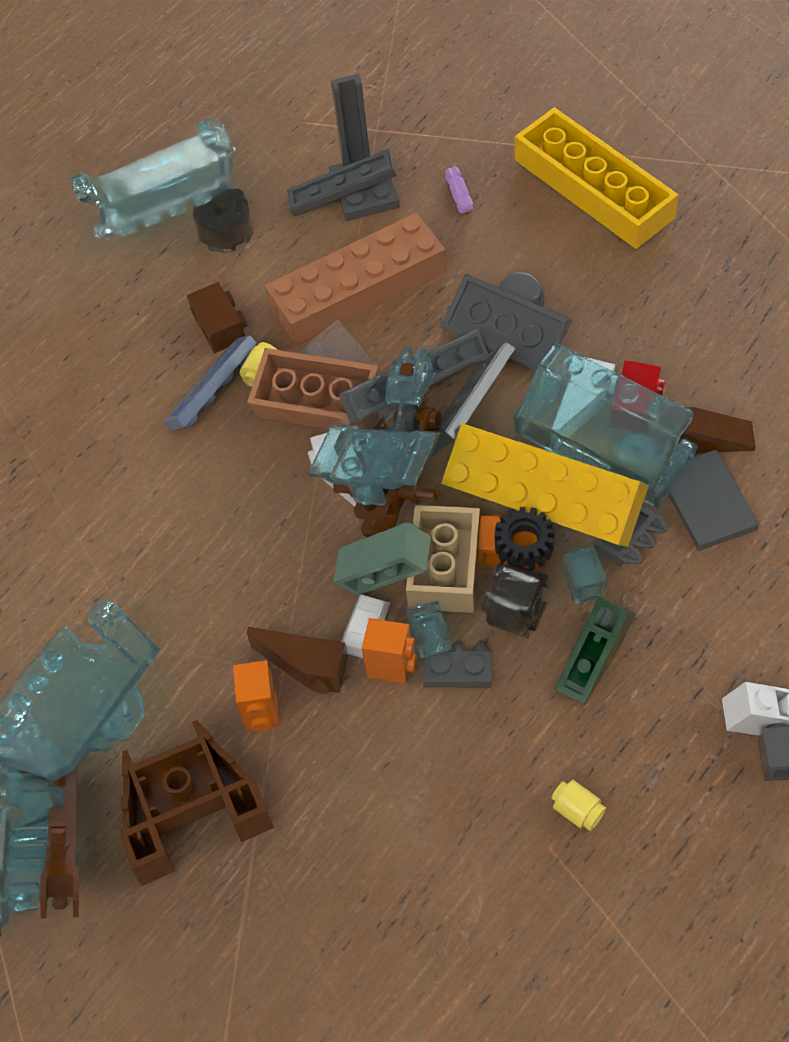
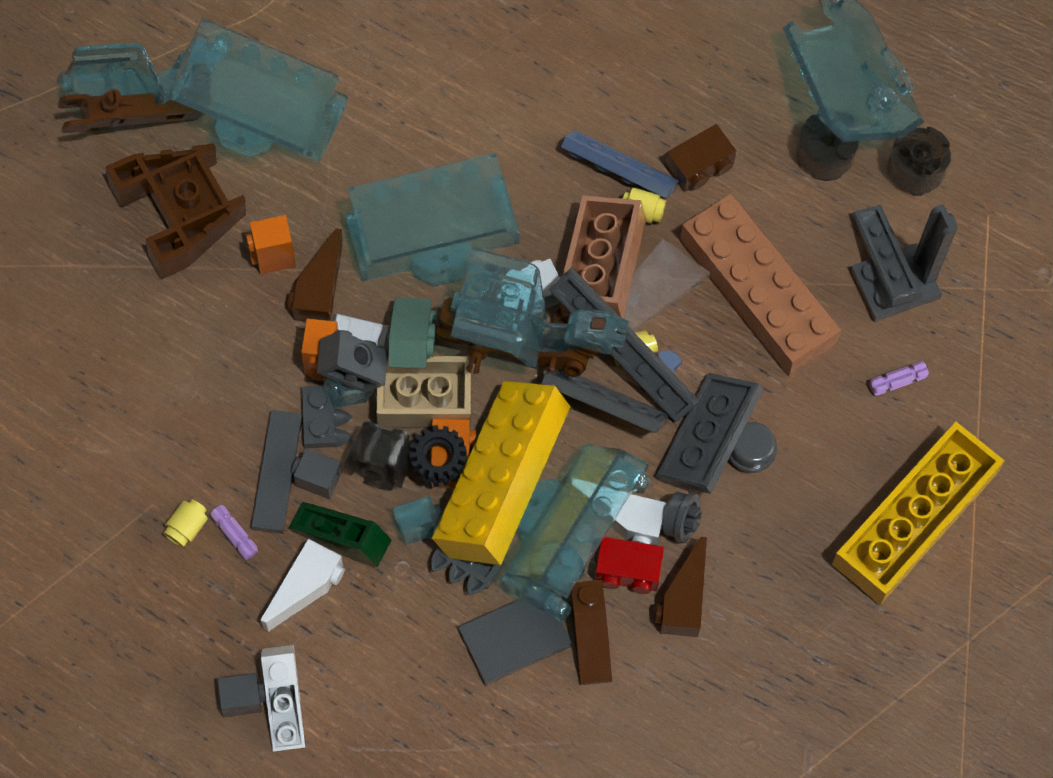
camera: 75 degrees right, 10 degrees up
(254, 154) = (919, 160): none -> clear smoke brick
(254, 541) = (431, 220): none -> clear light blue piece
(417, 603) = (352, 361): none -> dark grey brick
(519, 712) = (276, 472): none -> dark grey tile
(527, 668) = (316, 473): none -> dark grey brick
(588, 757) = (234, 532): none -> lavender axle
(592, 344) = (682, 516): none -> dark grey piece
(648, 681) = (306, 582): none -> white slope
(677, 354) = (683, 600): none -> reddish brown slope

